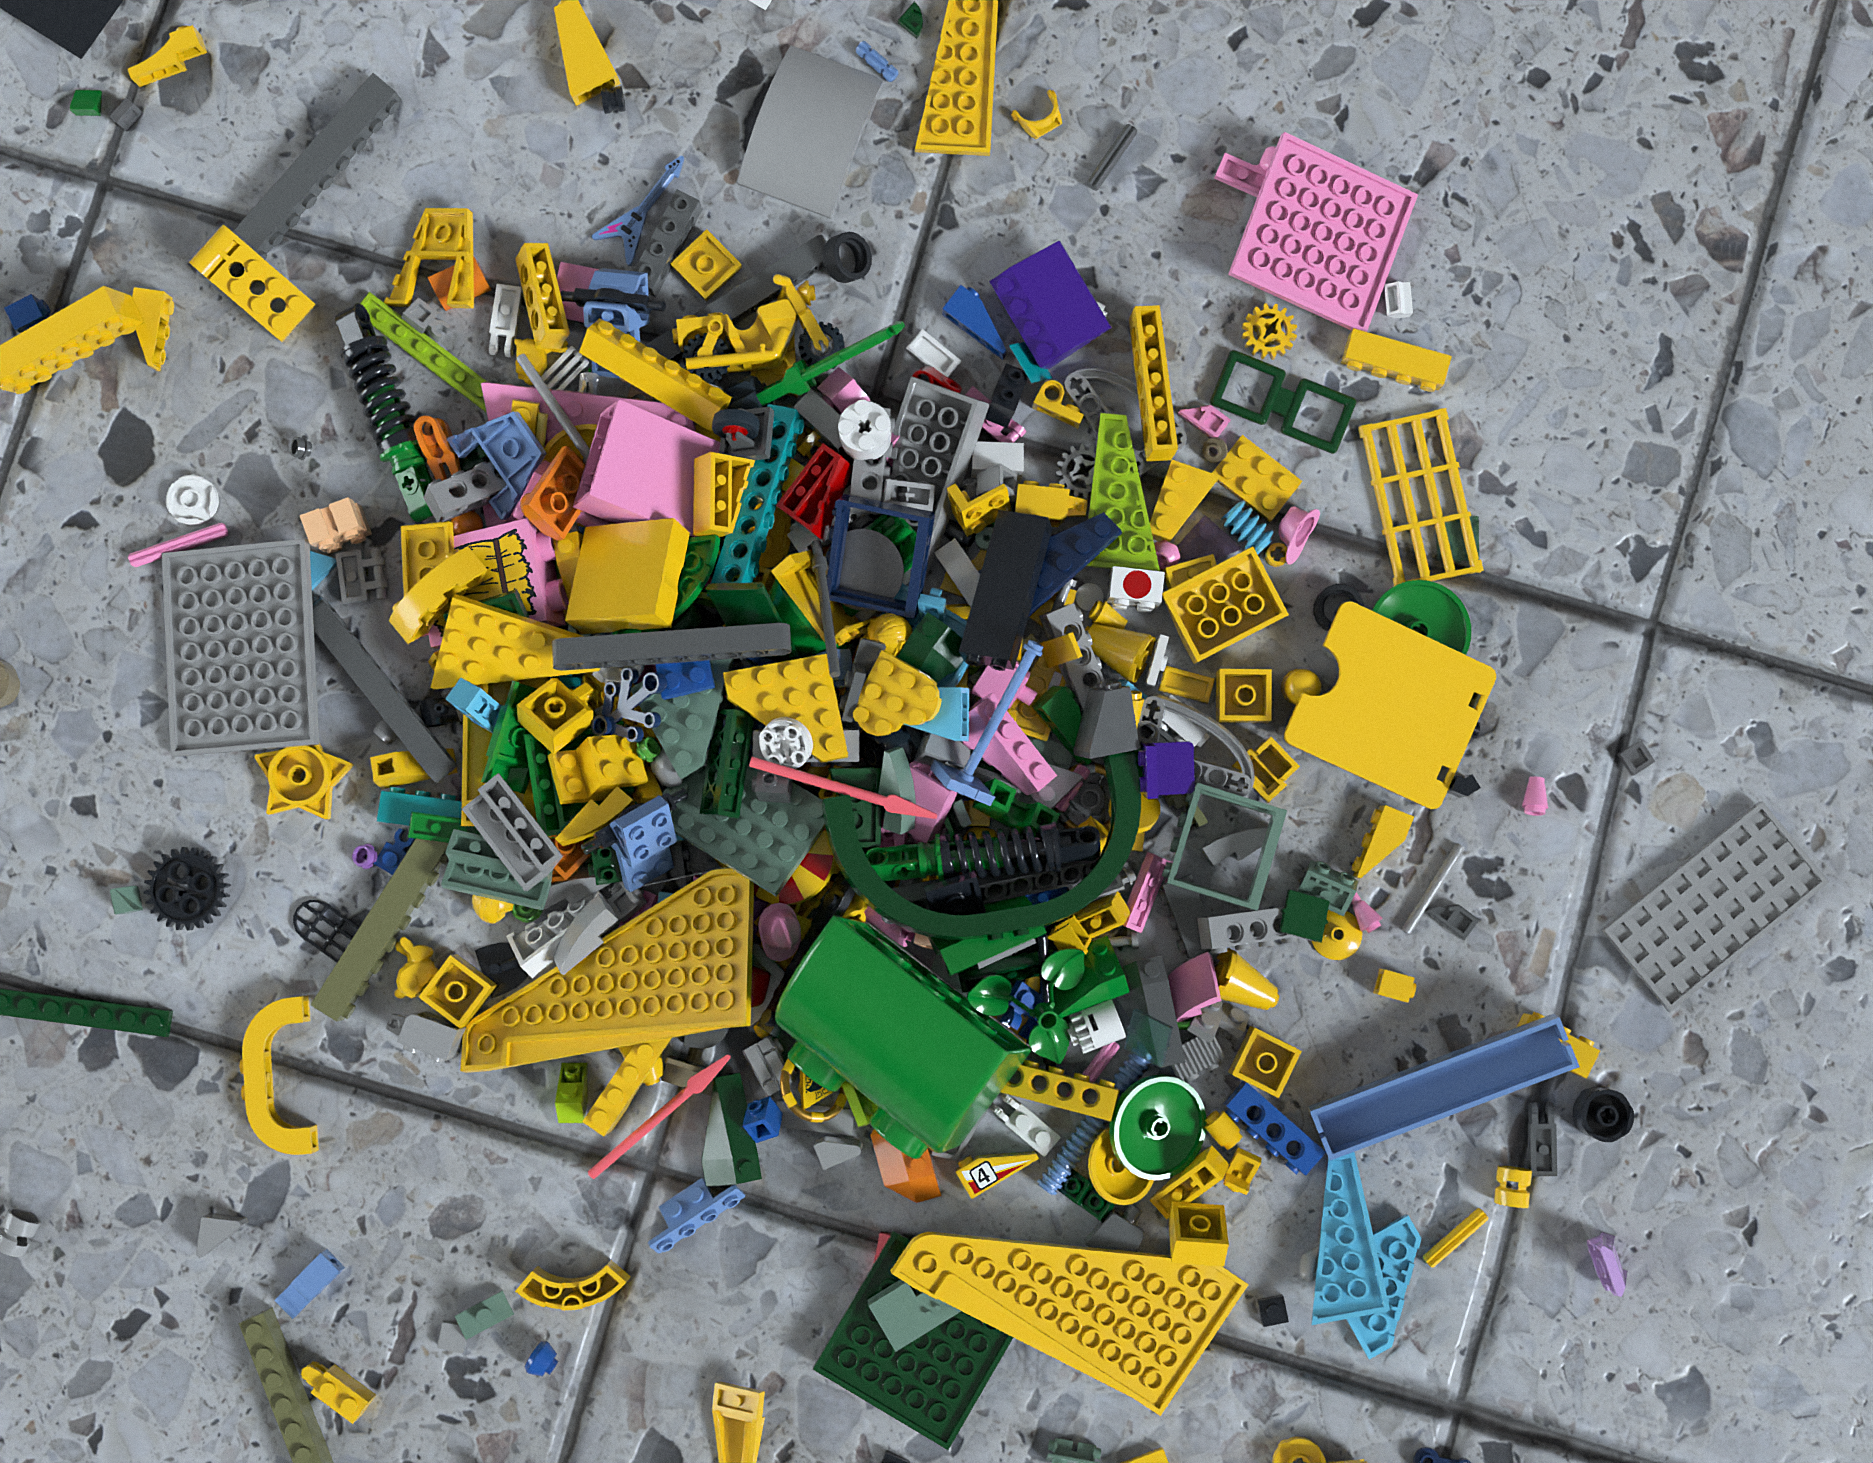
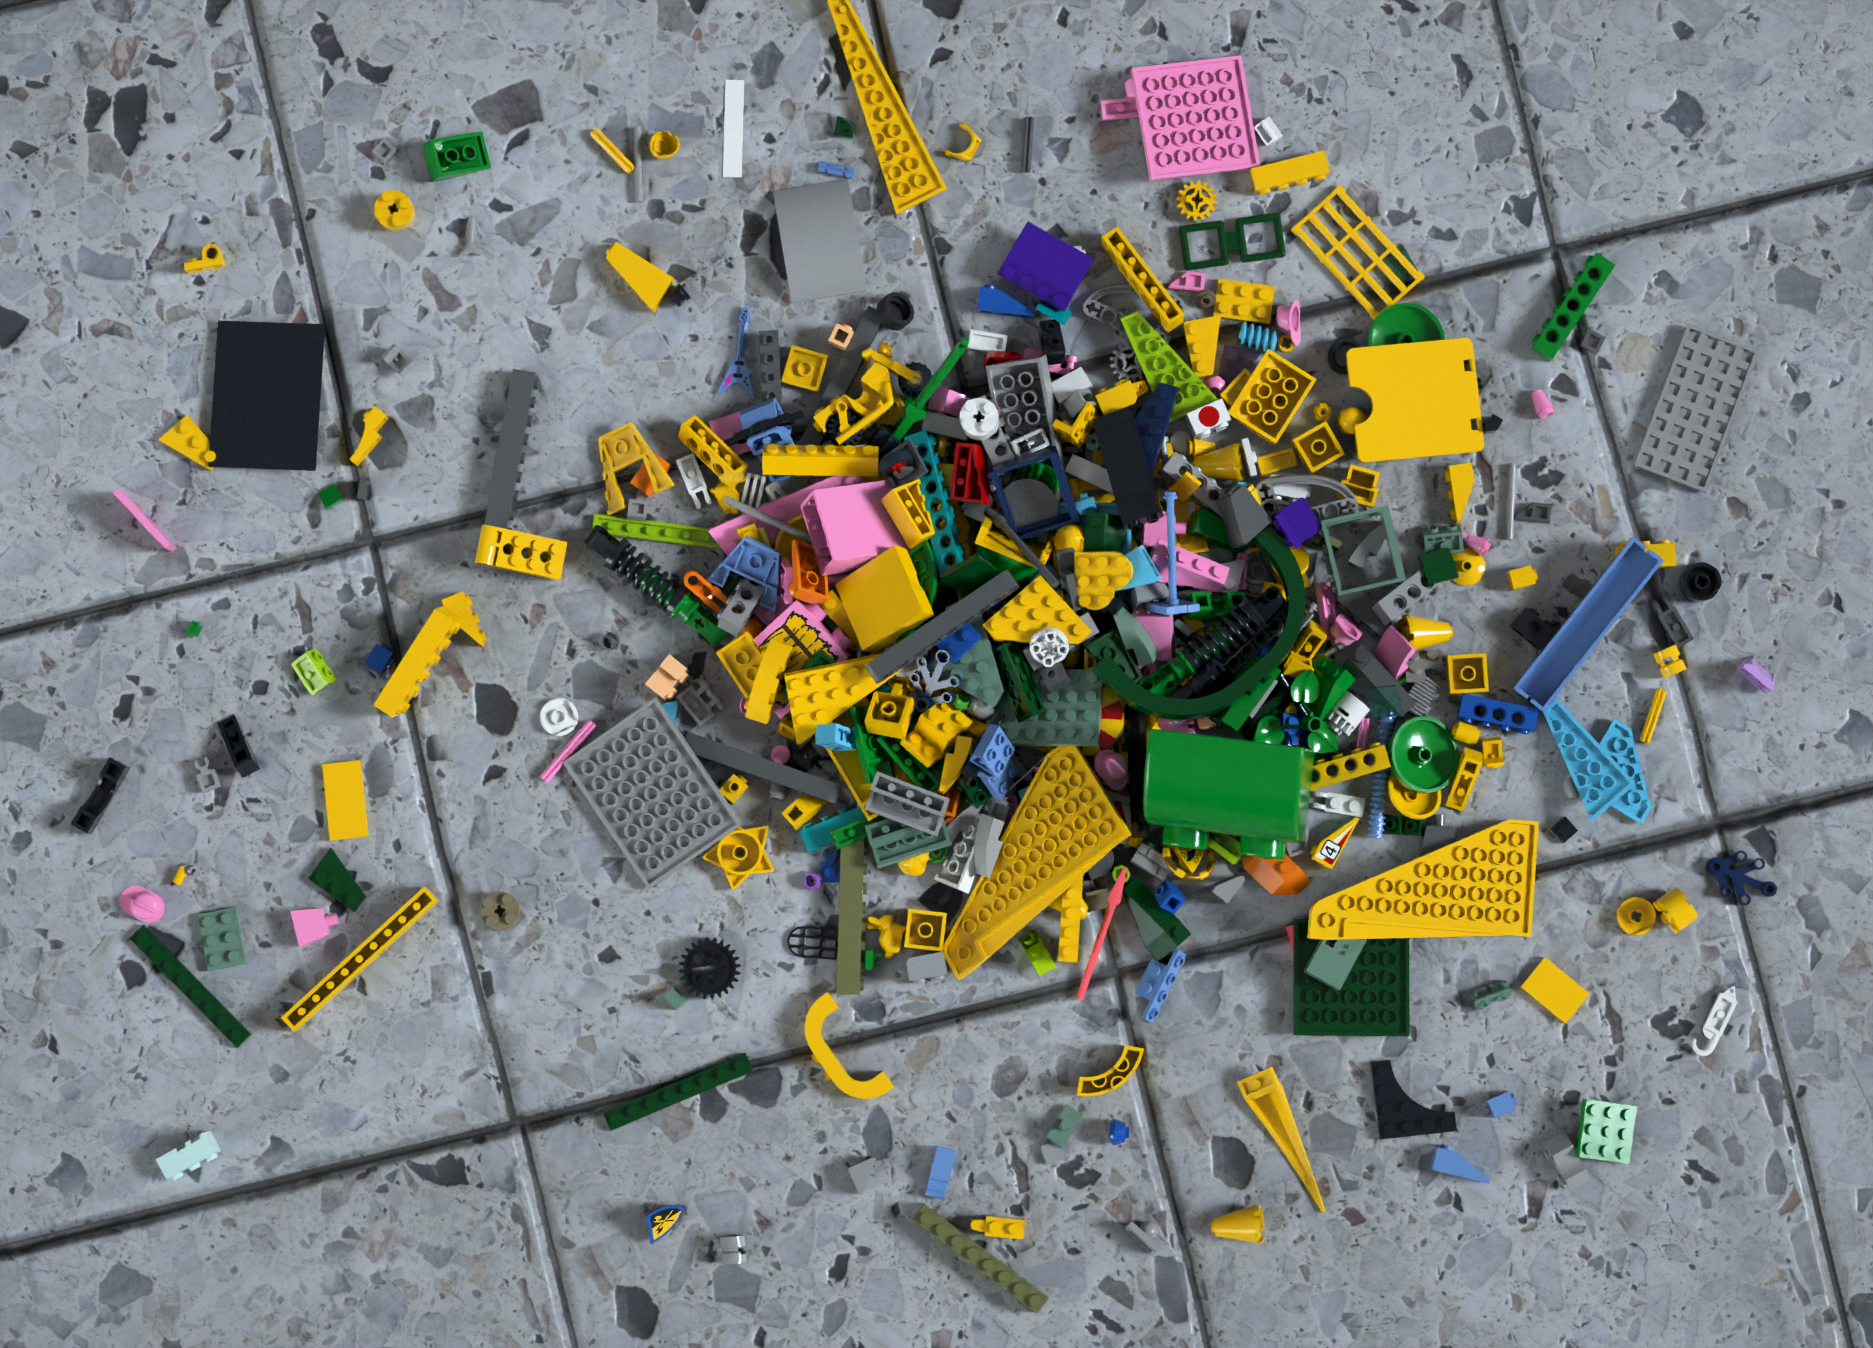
camera: 30 degrees left, 0 degrees up
(339, 697) = (734, 788): none -> yellow brick
(375, 988) = (870, 960): none -> green tile
(417, 689) = (780, 754): none -> bright pink tile
(721, 1052) = (1117, 870): none -> lime tile
(768, 249) = (841, 336): none -> light nougat brick
(891, 803) = (1137, 645): coral piece -> none
(934, 579) = (1075, 488): none -> yellow pin
(1068, 414) = (1098, 330): yellow plate -> none
(1152, 927) = (1345, 630): none -> bright pink piece
(1198, 1234) = (1487, 807): yellow brick -> none
(1280, 660) = (1323, 407): none -> yellow plate
(1362, 1041) = (1522, 623): none -> black brick
(1697, 677) = (1595, 263): none -> green brick

